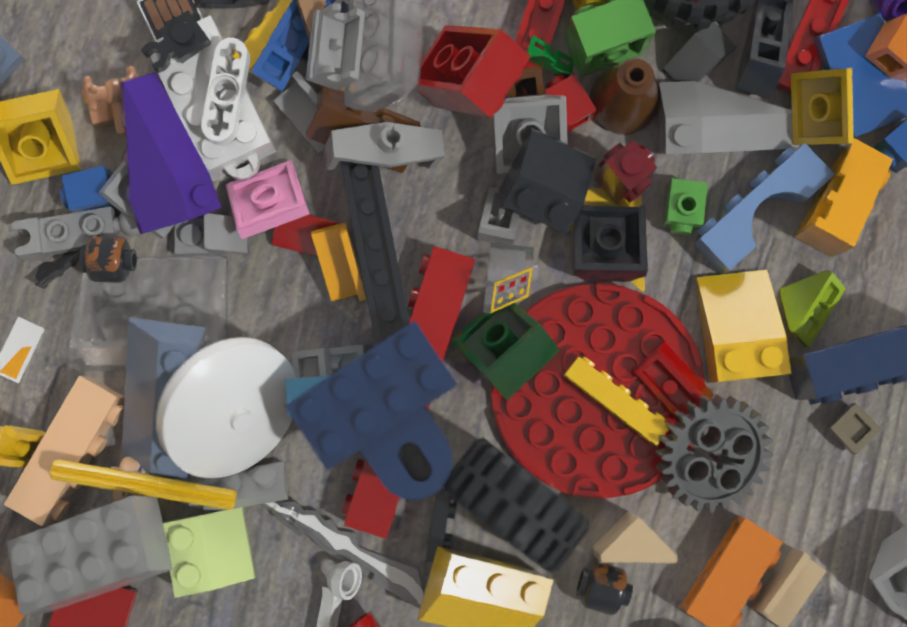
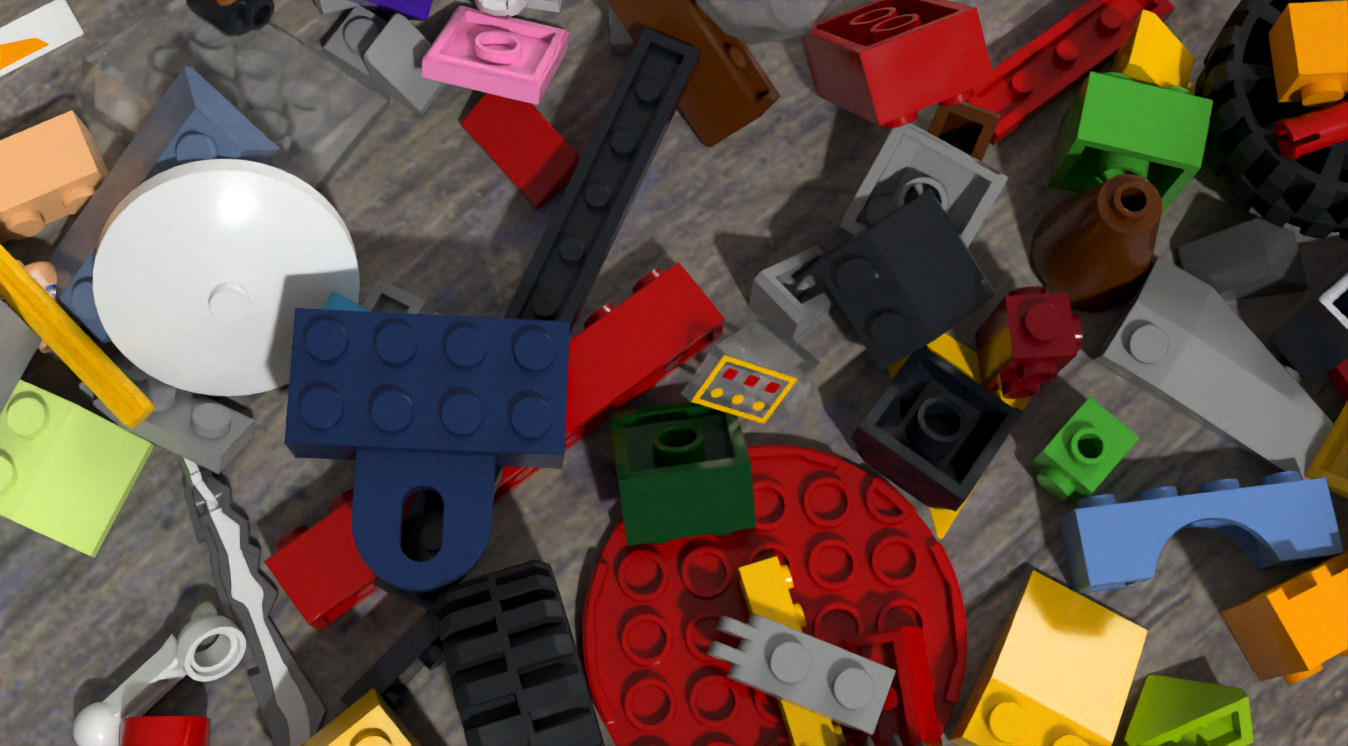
camera: 30 degrees right, 10 degrees down
(338, 262) = (530, 196): light orange panel -> none
(385, 145) = (709, 80): light grey piece -> none
(548, 59) = (1019, 129): green piece -> none
(578, 104) = (1017, 212): red brick -> none
(629, 401) = (805, 671): none -> light grey hinge

